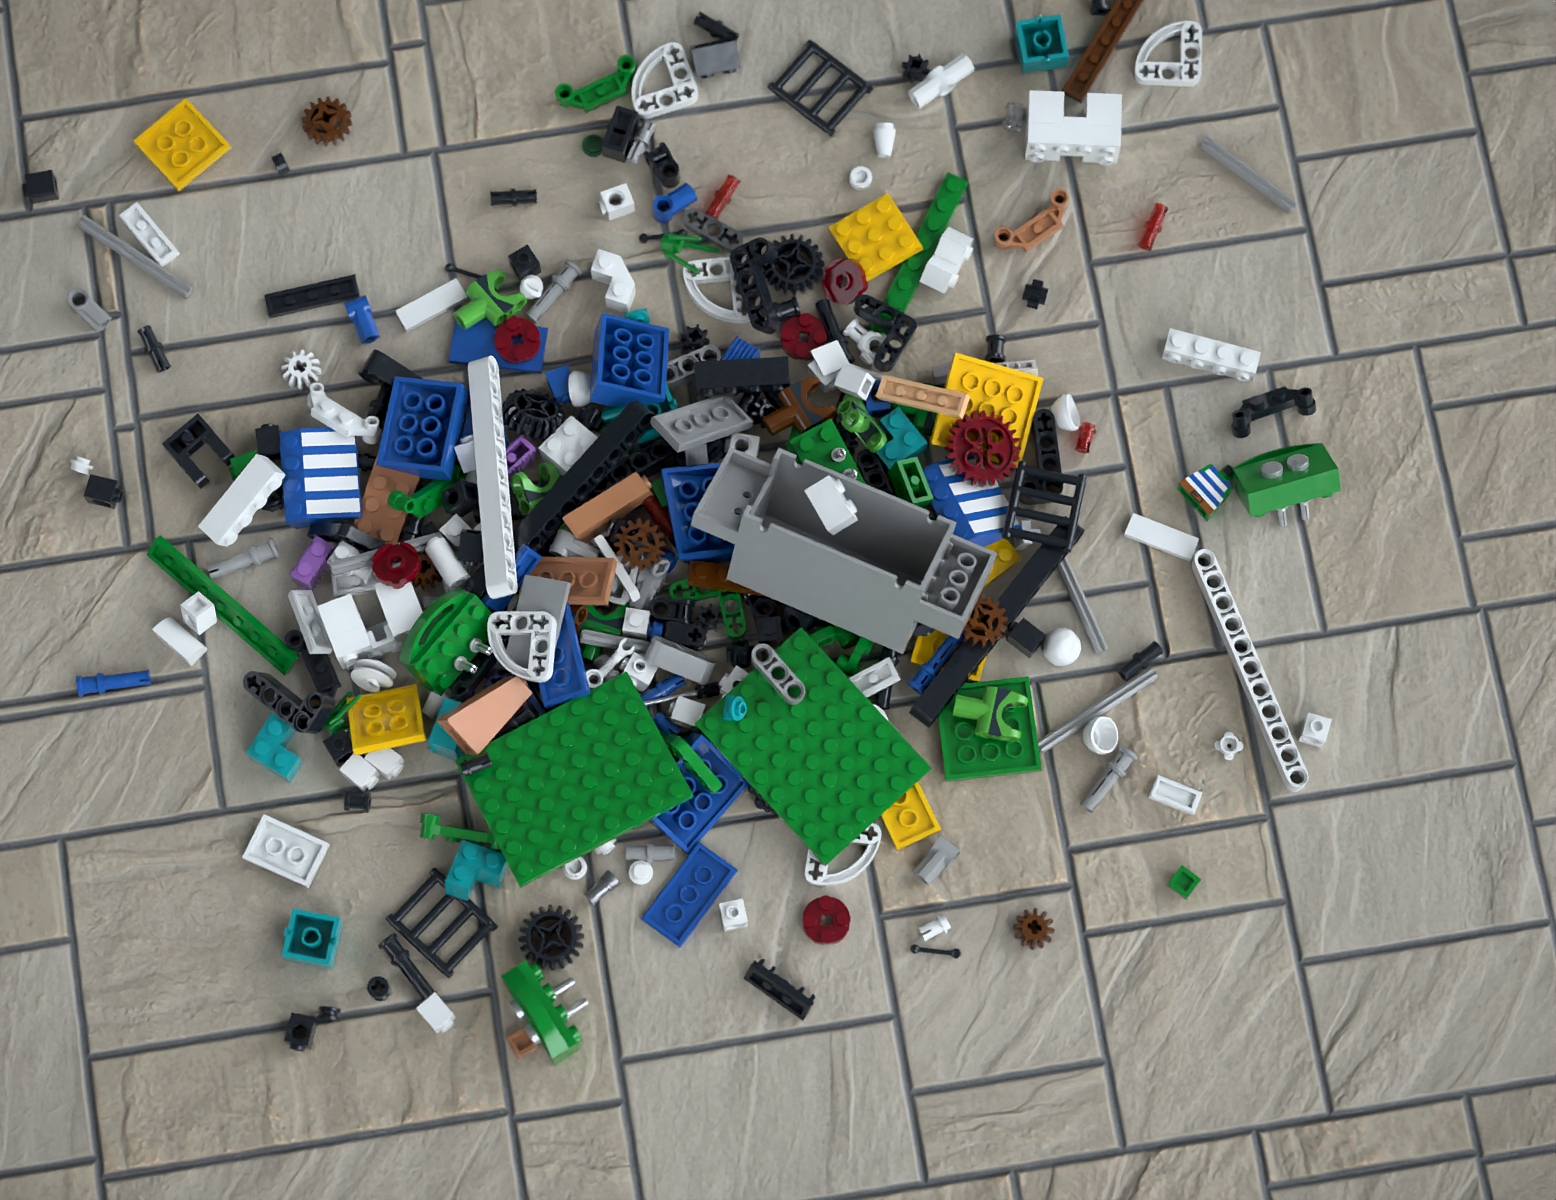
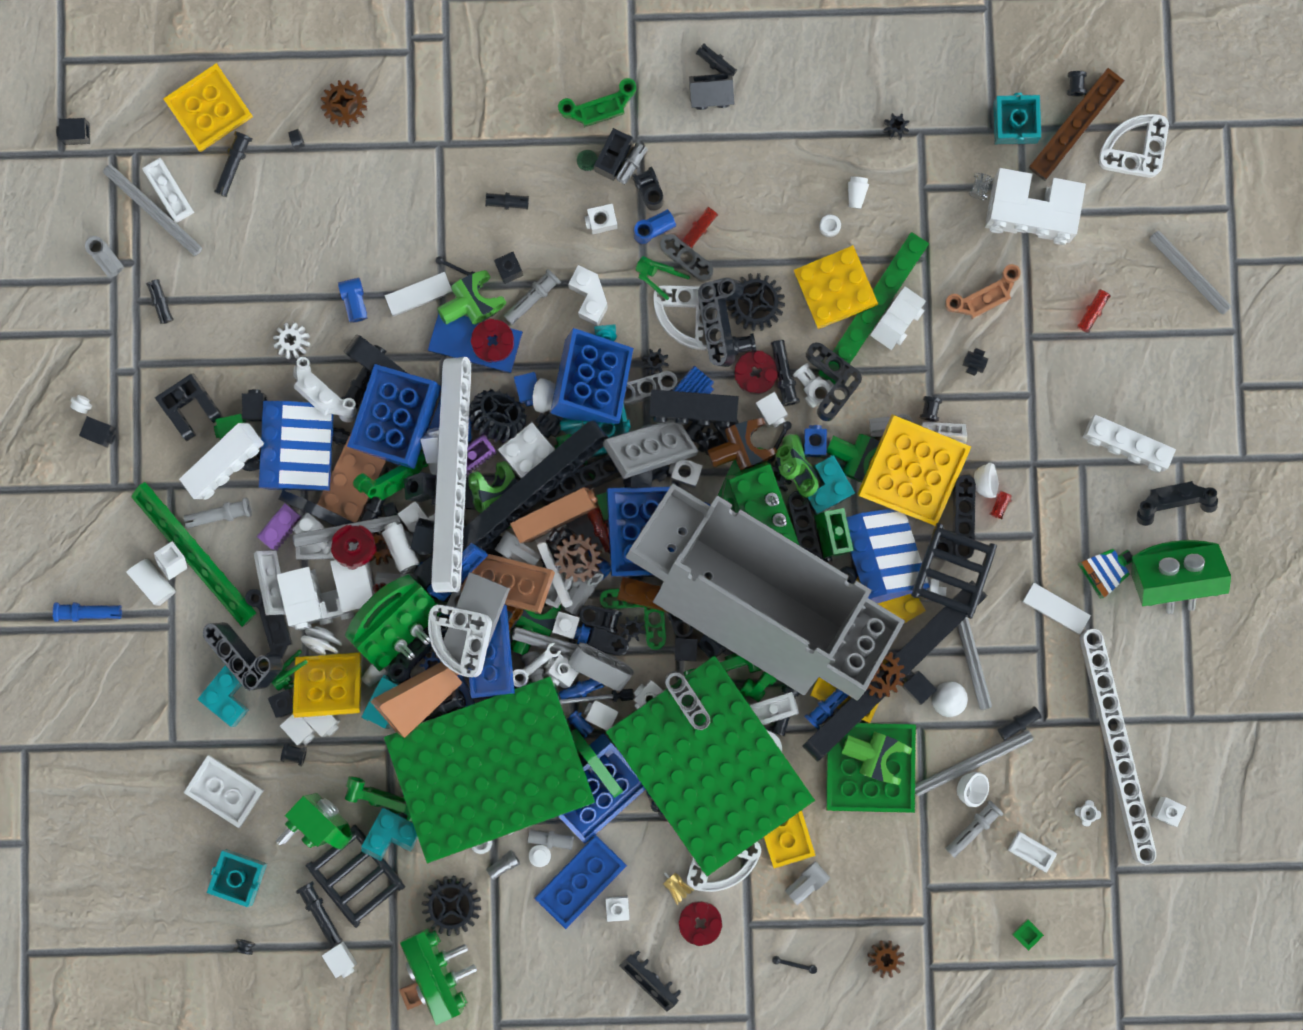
camera: 10 degrees right, 10 degrees up
(217, 188) = (236, 154): none -> black pin
(297, 1021) = (223, 952): black brick -> none
(312, 296) = (310, 270): black tile -> none
(372, 984) = (295, 925): black bush -> none
(392, 857) = (318, 822): none -> green piece
(475, 764) = (400, 747): black pin -> none
(531, 287) = (512, 290): white tile -> none
(644, 237) = (622, 256): black hinge -> none
(679, 85) = (674, 112): white beam -> none
(734, 708) = (643, 725): teal plate -> none
(739, 653) = (656, 666): black gear -> none
(792, 879) = (677, 887): none -> pearl gold piece
(812, 114) = (793, 157): black bar -> none
(831, 359) = (778, 400): white piece -> none
(831, 504) = (758, 559): white brick -> none
(854, 382) = (796, 426): white brick -> none
(855, 281) = (811, 321): dark red plate -> none
(922, 396) = (857, 452): light nougat plate -> none
(936, 926) = (796, 944): white pin -> none
(941, 80) = (918, 142): white piece -> none
(962, 446) = (886, 505): dark red gear -> none

